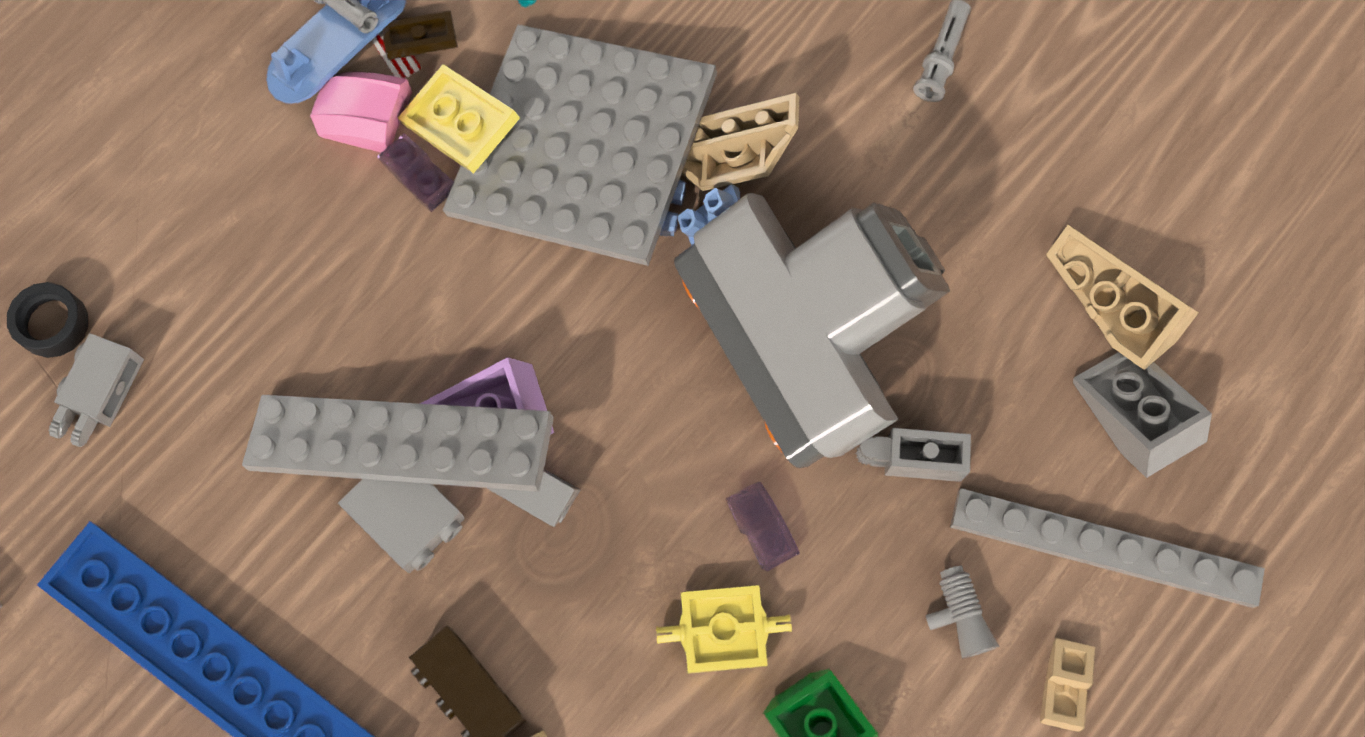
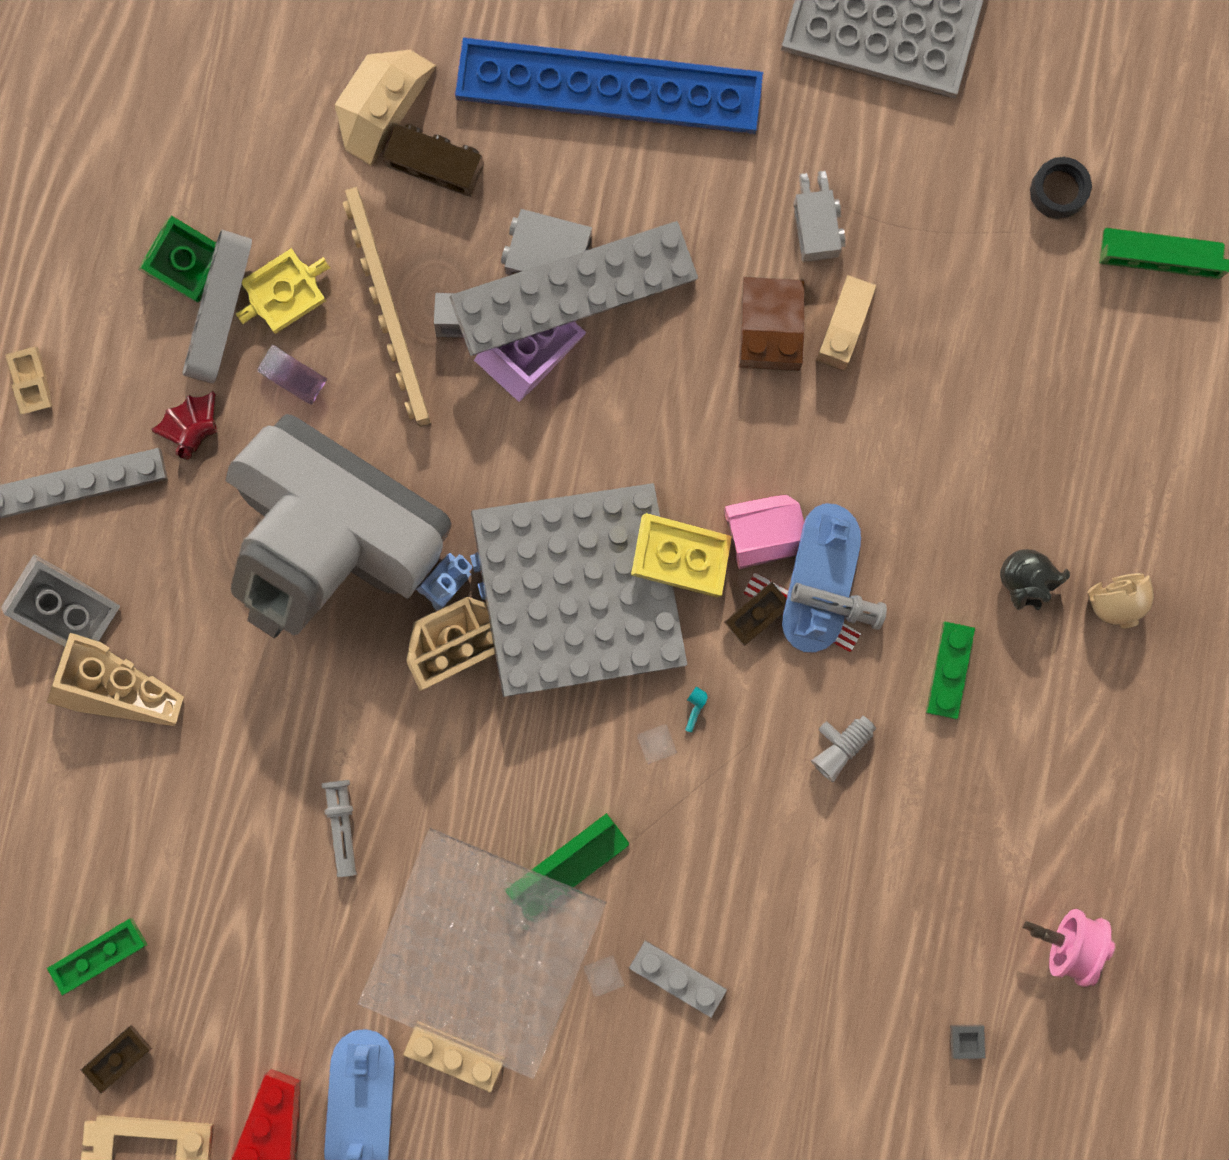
camera: 155 degrees right, 10 degrees up
(28, 301) = (889, 225): black tyre -> none
(141, 263) = (846, 323): none -> tan slope
(216, 304) = (772, 324): none -> reddish brown slope
(416, 172) = (692, 503): clear purple slope -> none
(614, 562) = (381, 295): none -> tan plate
(807, 647) = (217, 306): none -> light grey beam
(905, 536) = (189, 424): none -> dark red arm
(919, 454) = (197, 483): light grey hinge -> none
(965, 611) = (120, 390): light grey piece -> none
(1246, 54) = (97, 956): none -> green plate

